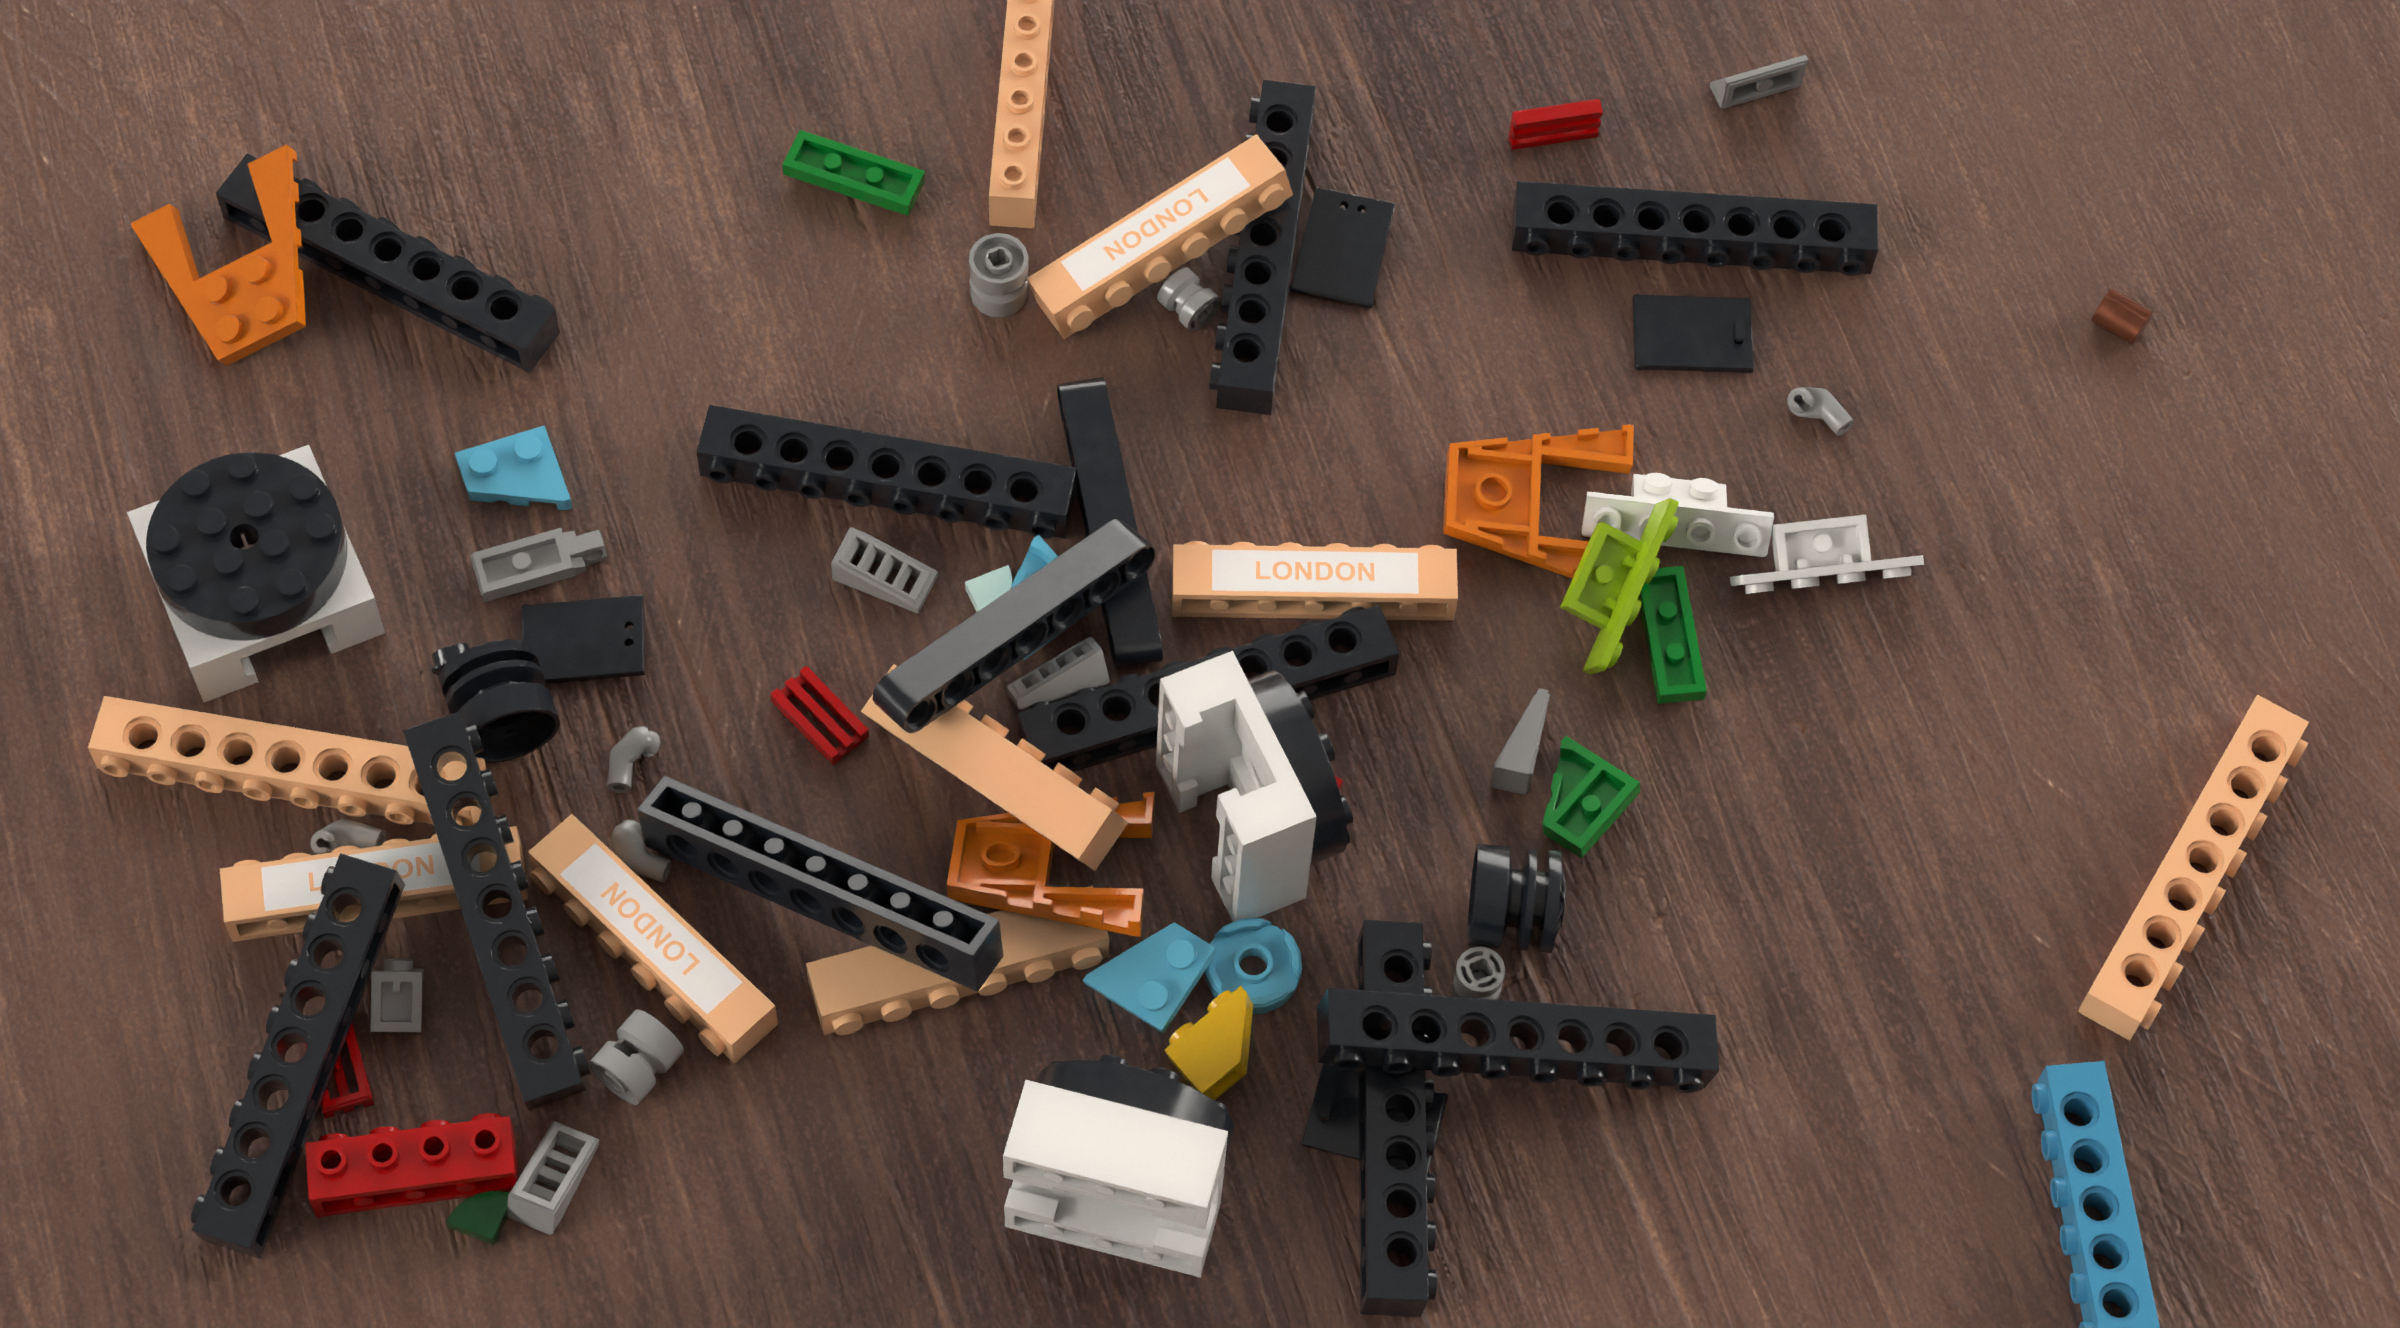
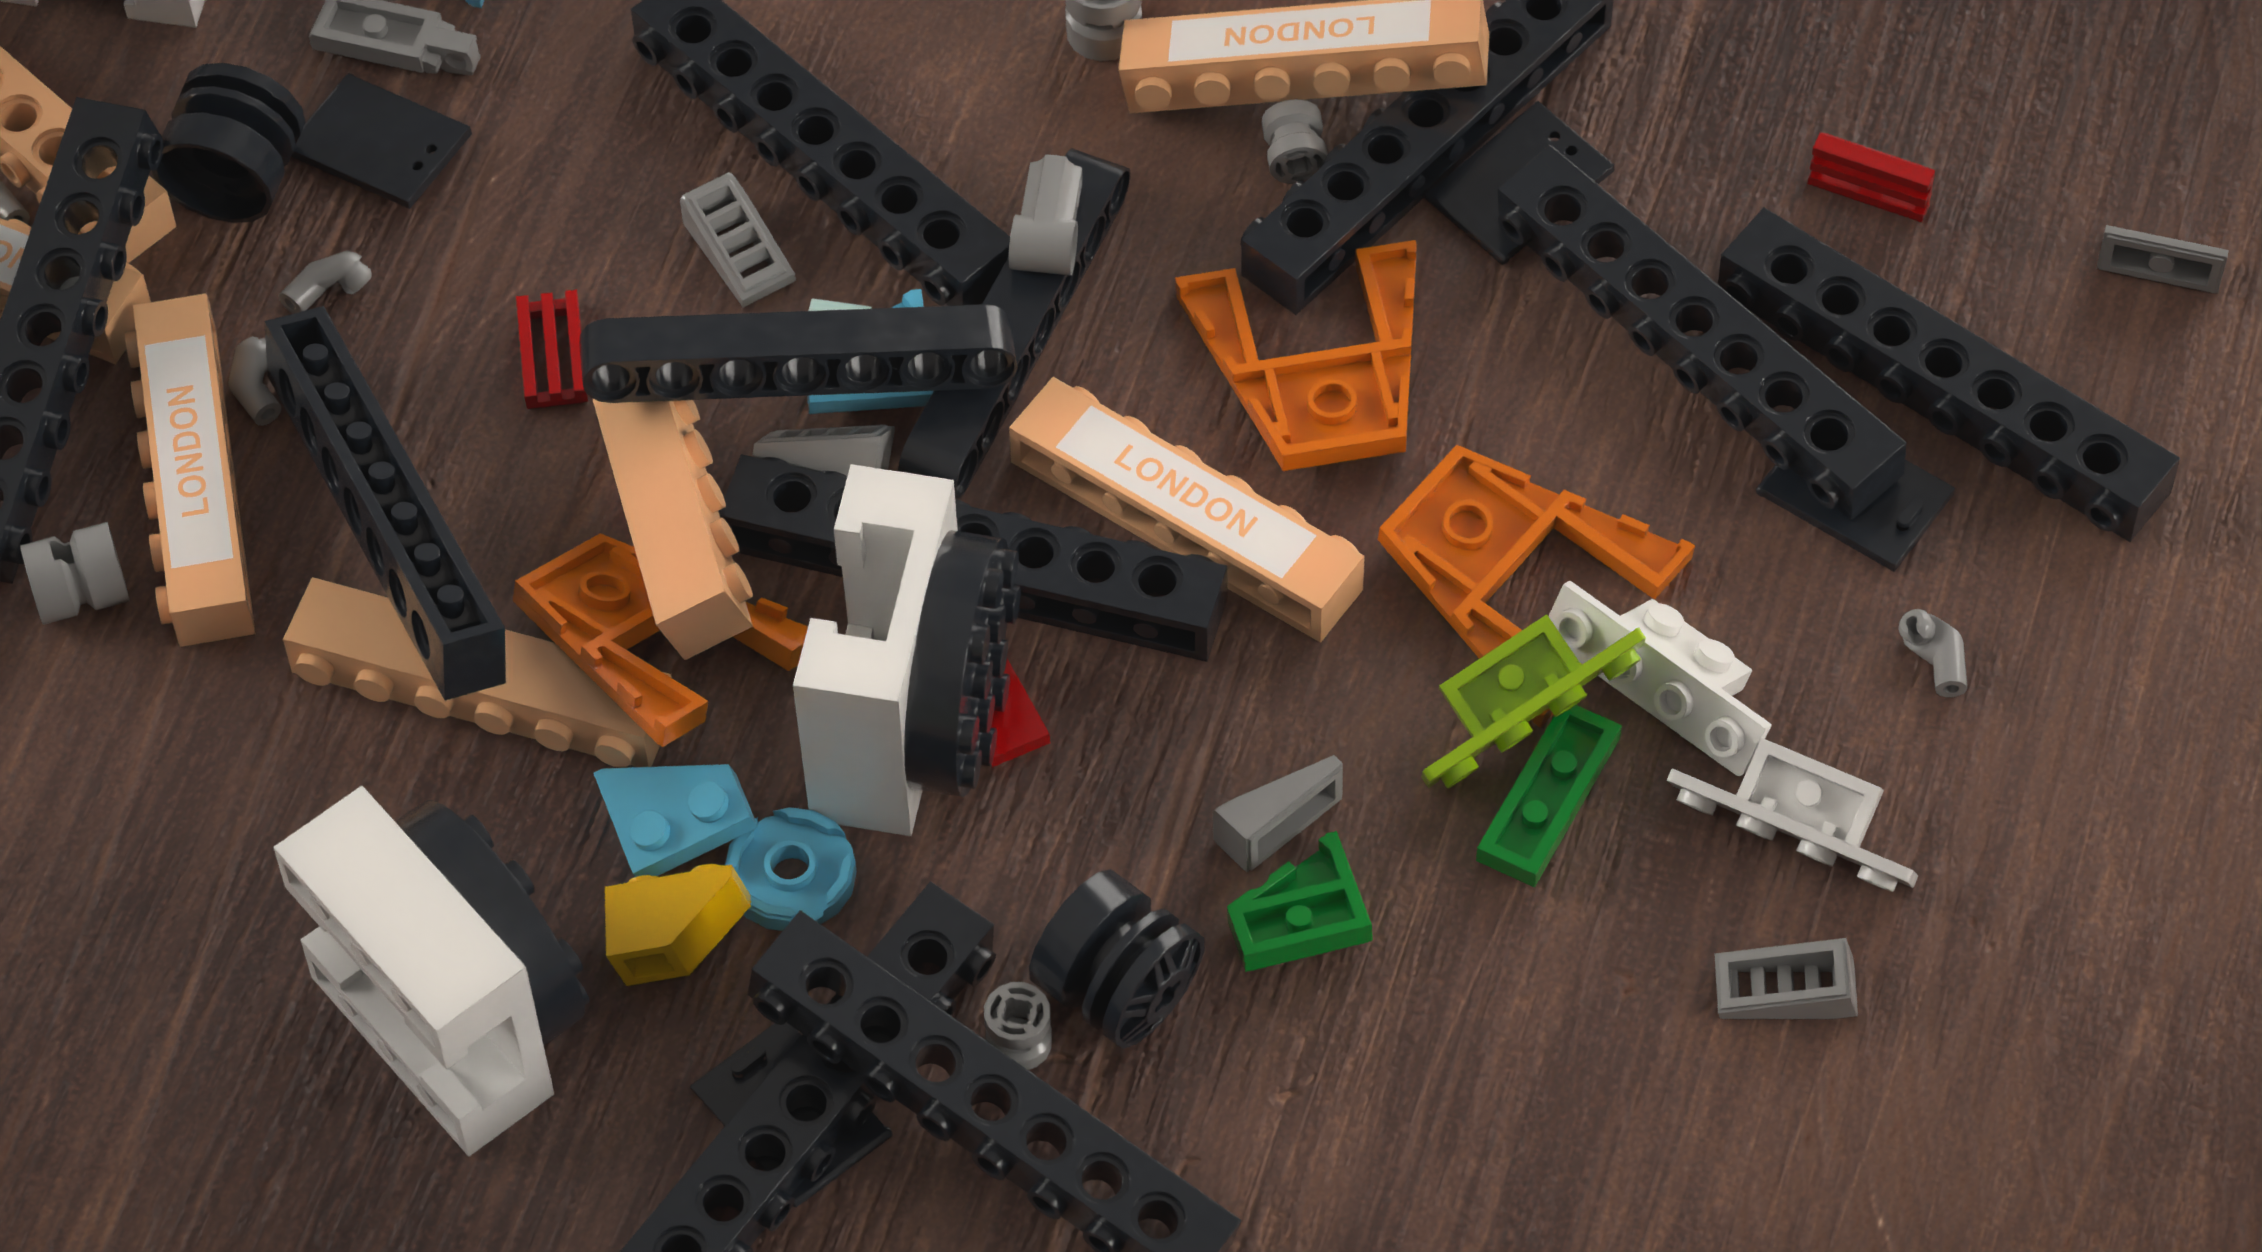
camera: 40 degrees right, 5 degrees down
(1097, 450) = (1046, 230): none -> light grey piece
(1341, 463) = (1326, 401): none -> orange wing
(1523, 265) = (1689, 300): none -> black brick
(1909, 636) = (1808, 957): none -> light grey slope

